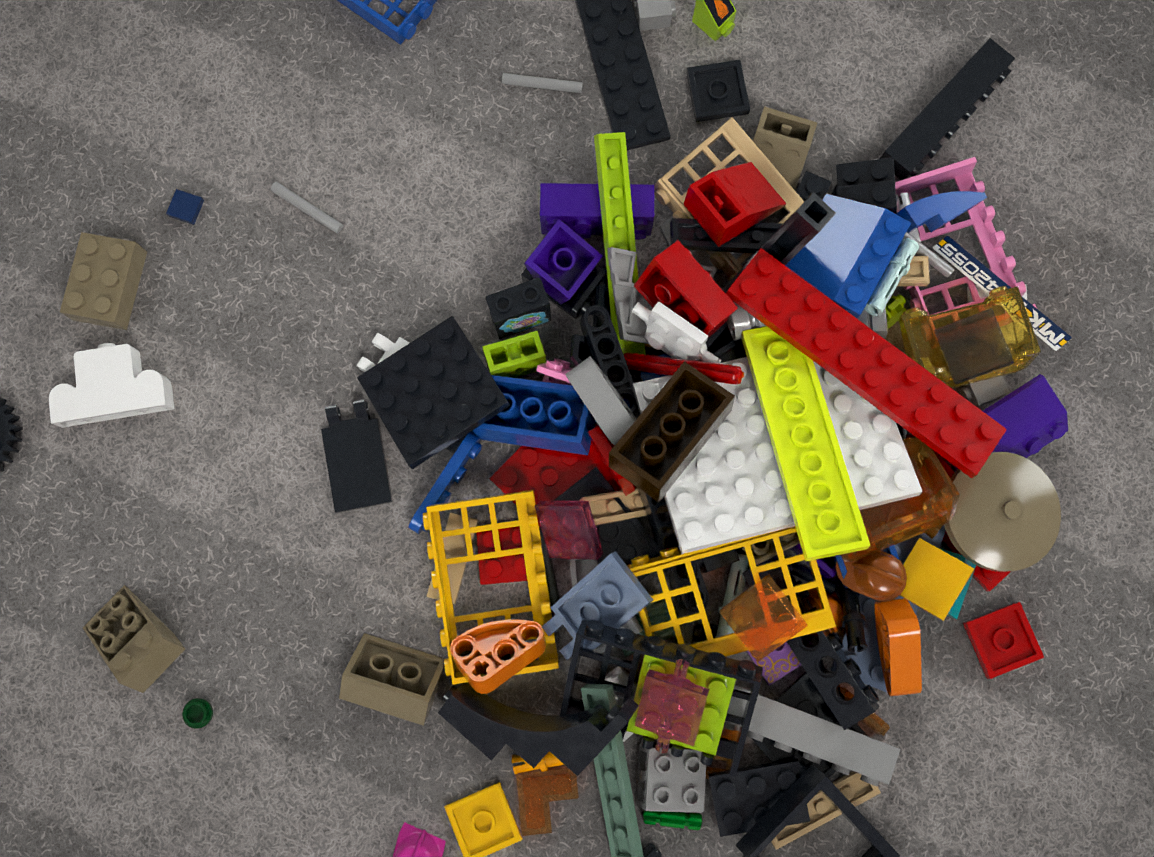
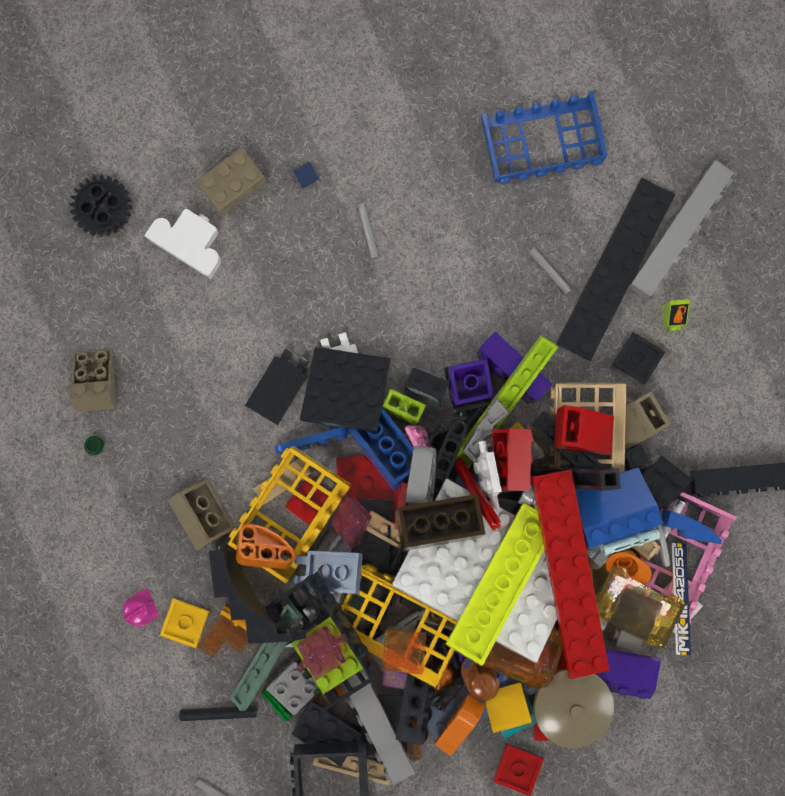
camera: 40 degrees right, 5 degrees up
(927, 297) = (636, 567): none -> orange piece

